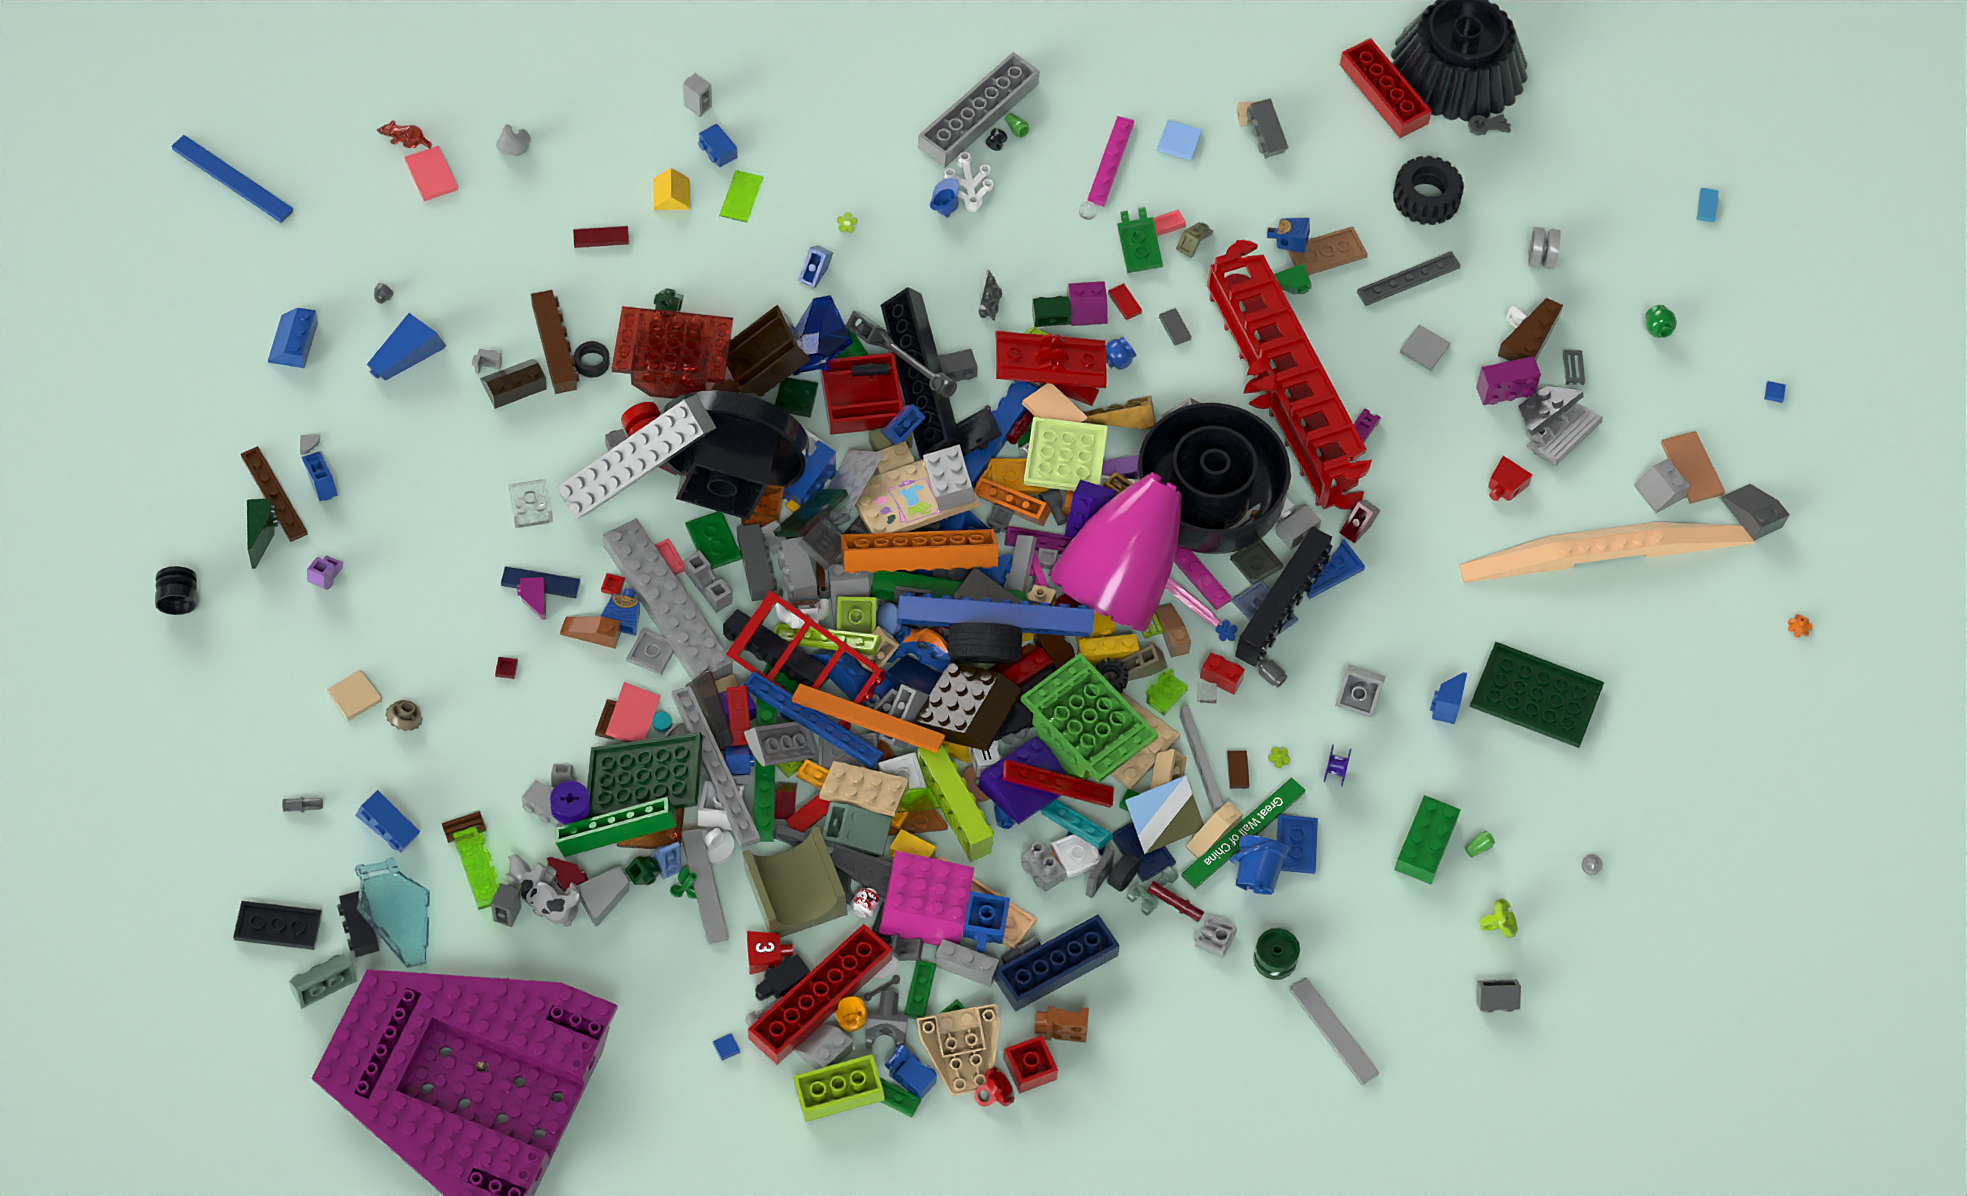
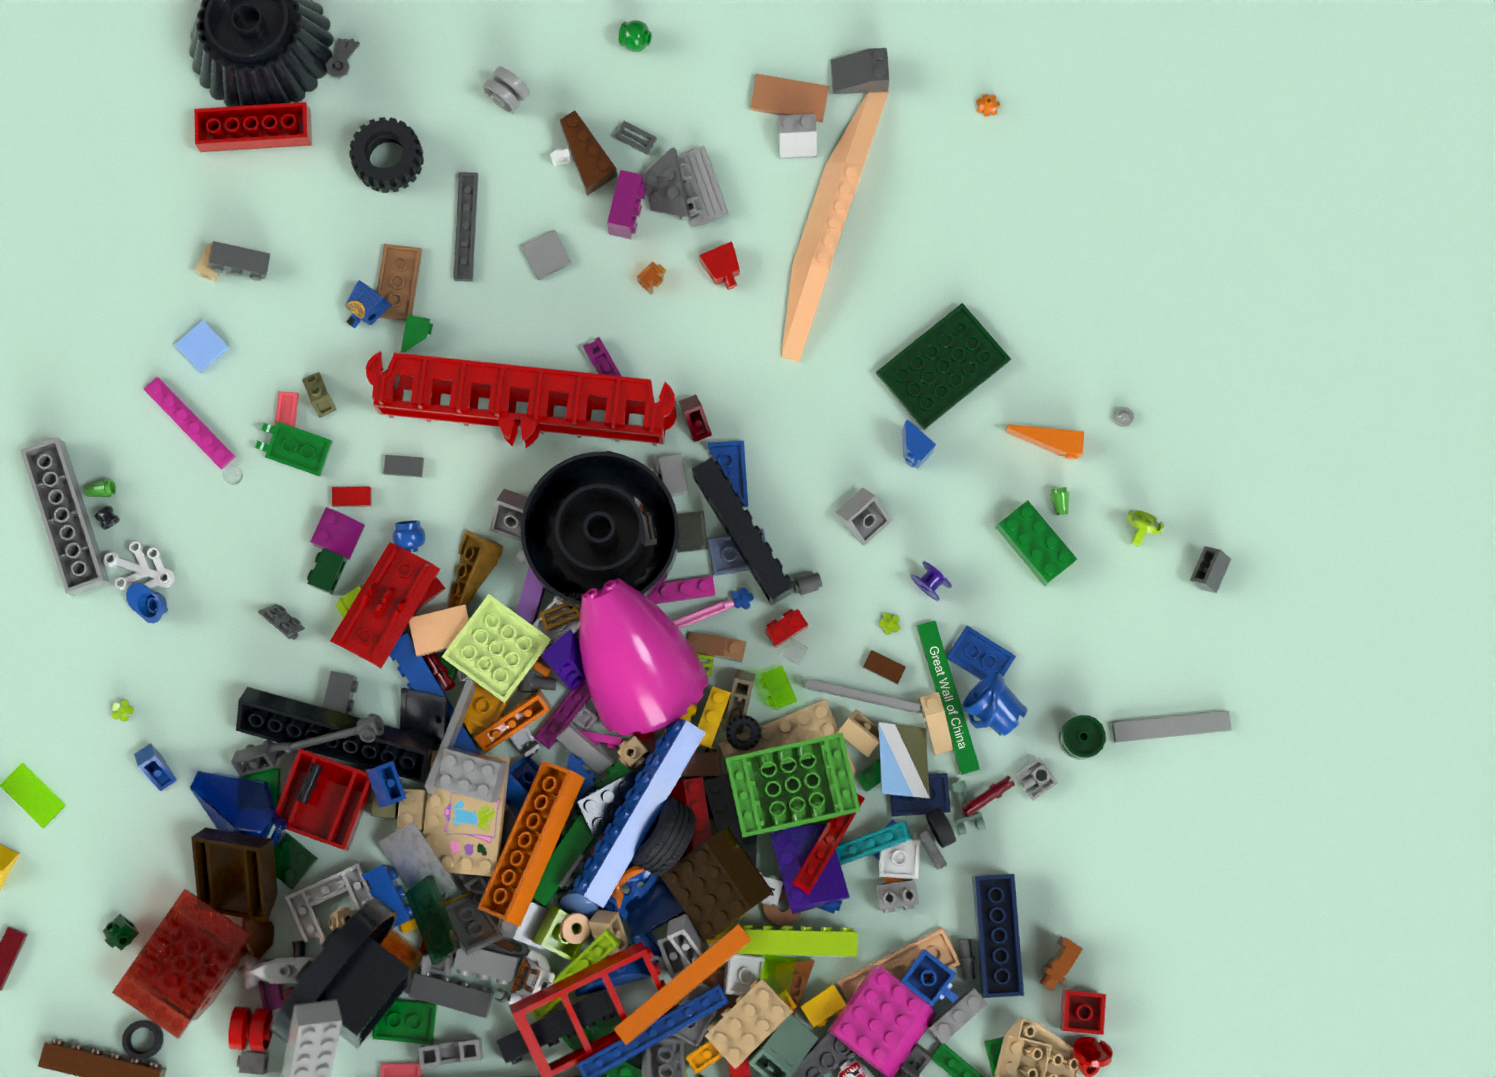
camera: 60 degrees left, 20 degrees up
(857, 616) = (567, 923): none -> light nougat piece
(979, 453) = (451, 732): none -> light grey tile
(1460, 432) = (651, 277): none -> clear orange brick
(1533, 820) = (1058, 441): none -> orange slope

